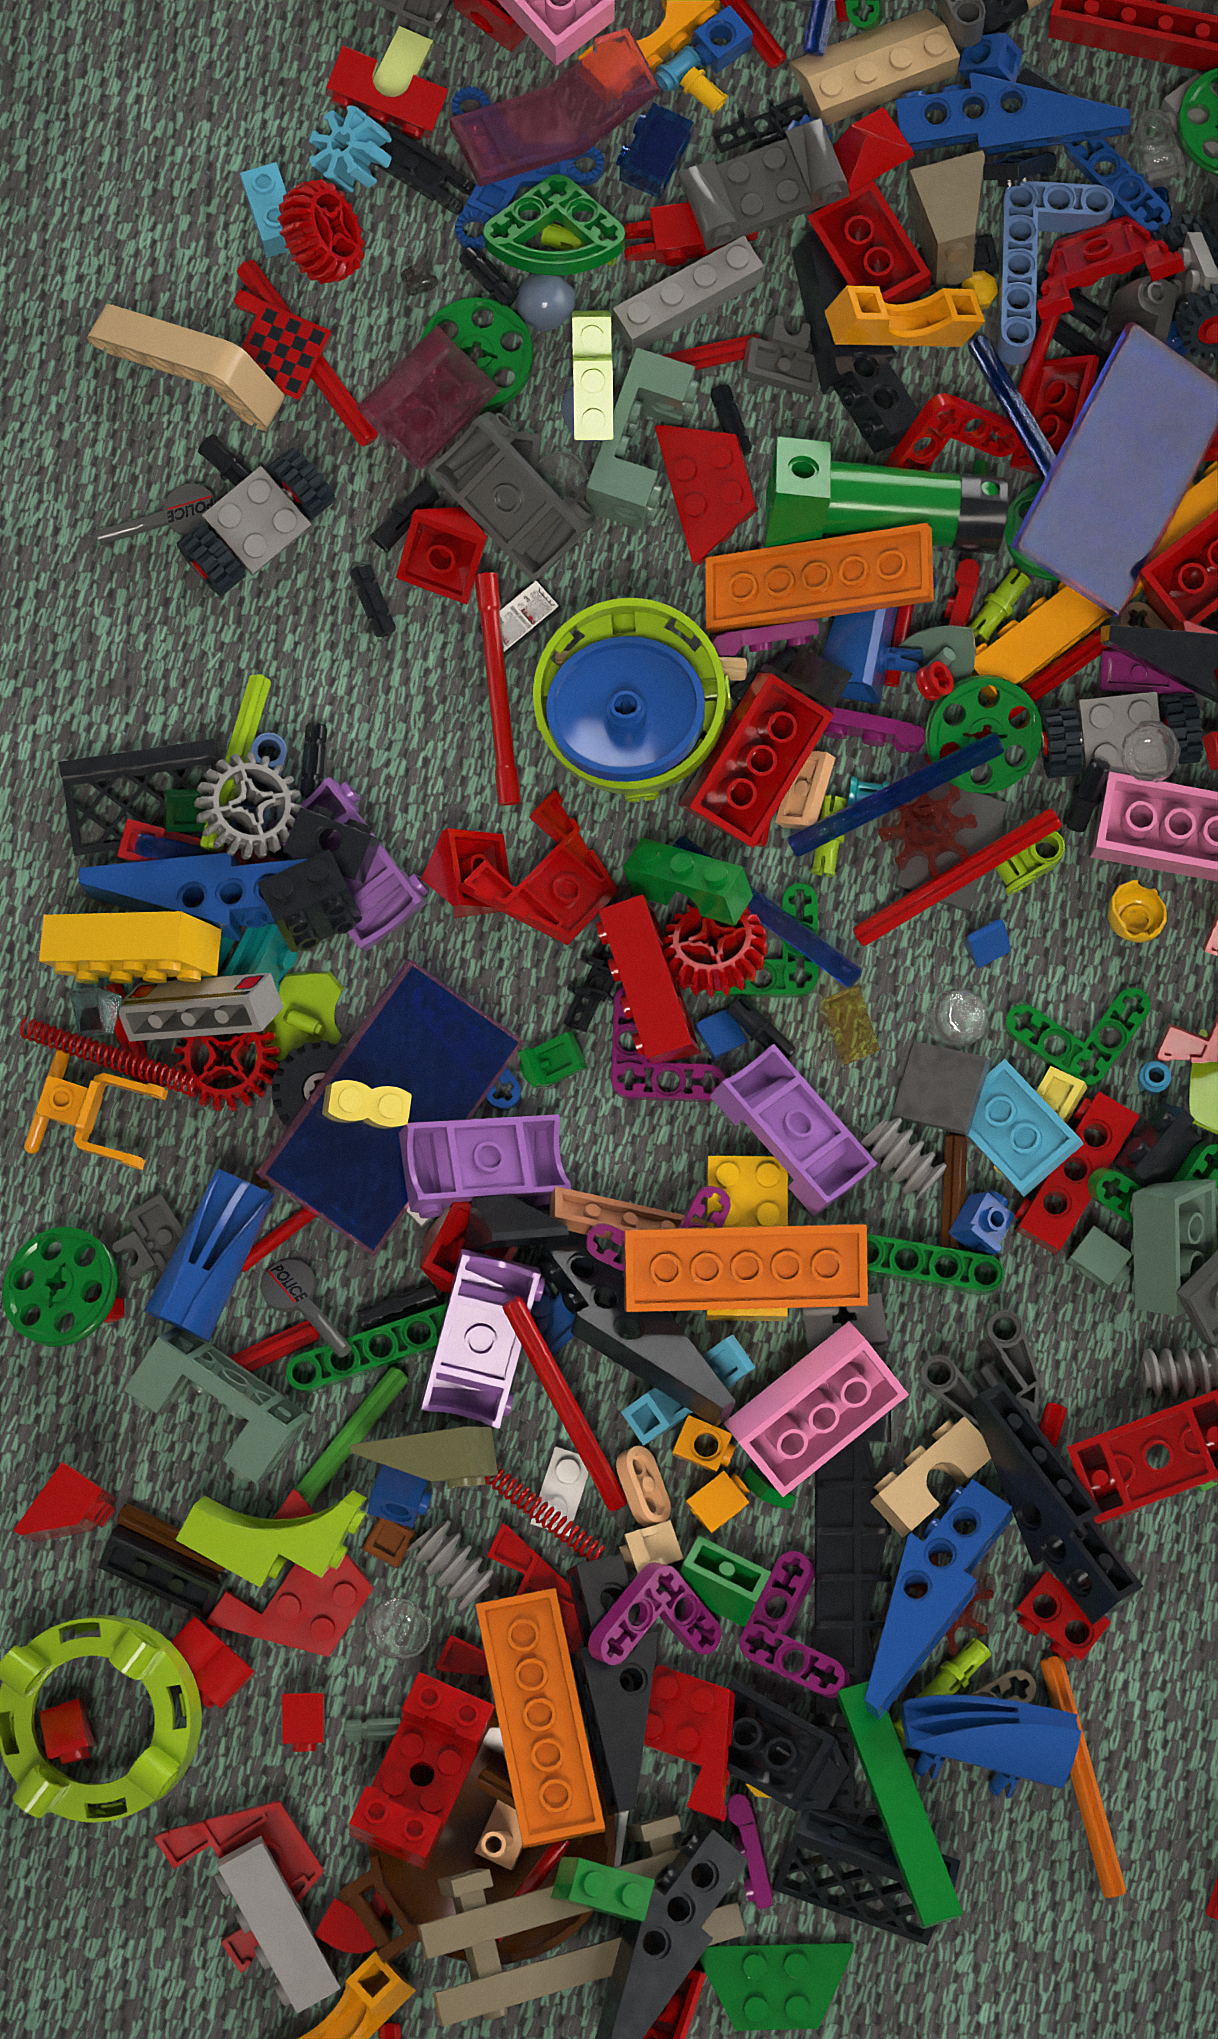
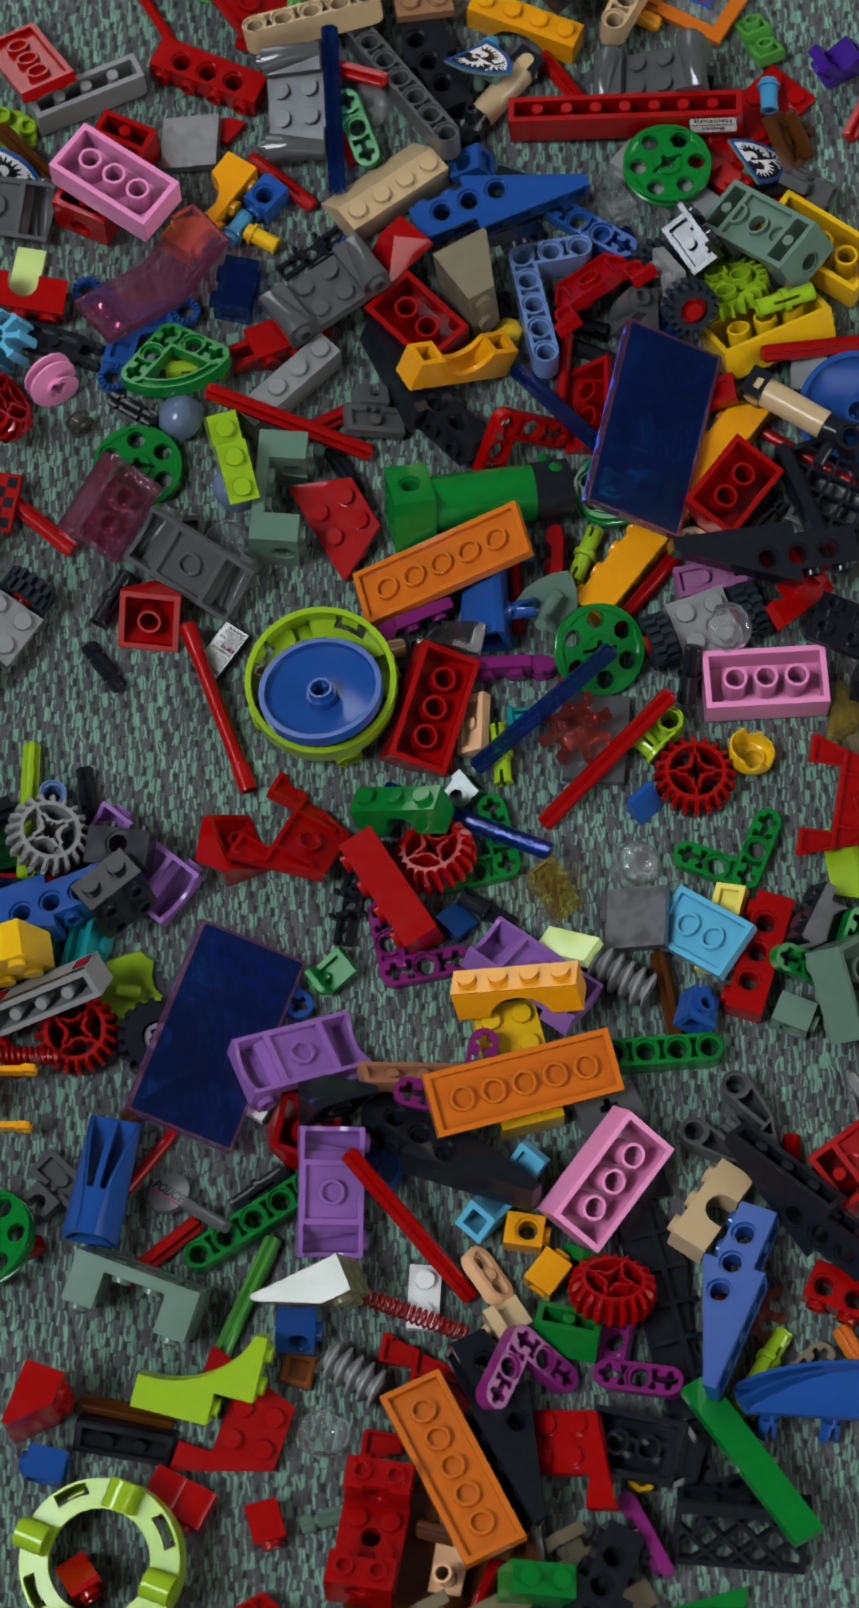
camera: 10 degrees left, 10 degrees down
(60, 1580) = (45, 1465): none -> blue brick
(354, 1101) = (206, 1034): light yellow brick -> none
(397, 214) = (51, 380): none -> bright pink piece
(674, 343) = (288, 421): none -> red axle
(779, 868) = (469, 787): none -> tile
(788, 1547) = (612, 1290): none -> red gear
(813, 1156) = (553, 984): none -> light orange arch
(851, 1103) = (572, 945): none -> yellowish green tile
(934, 681) = (551, 616): red bush -> none
(1042, 921) = (682, 776): none -> red gear
(1163, 1077) = (798, 876): dark azure pin -> none

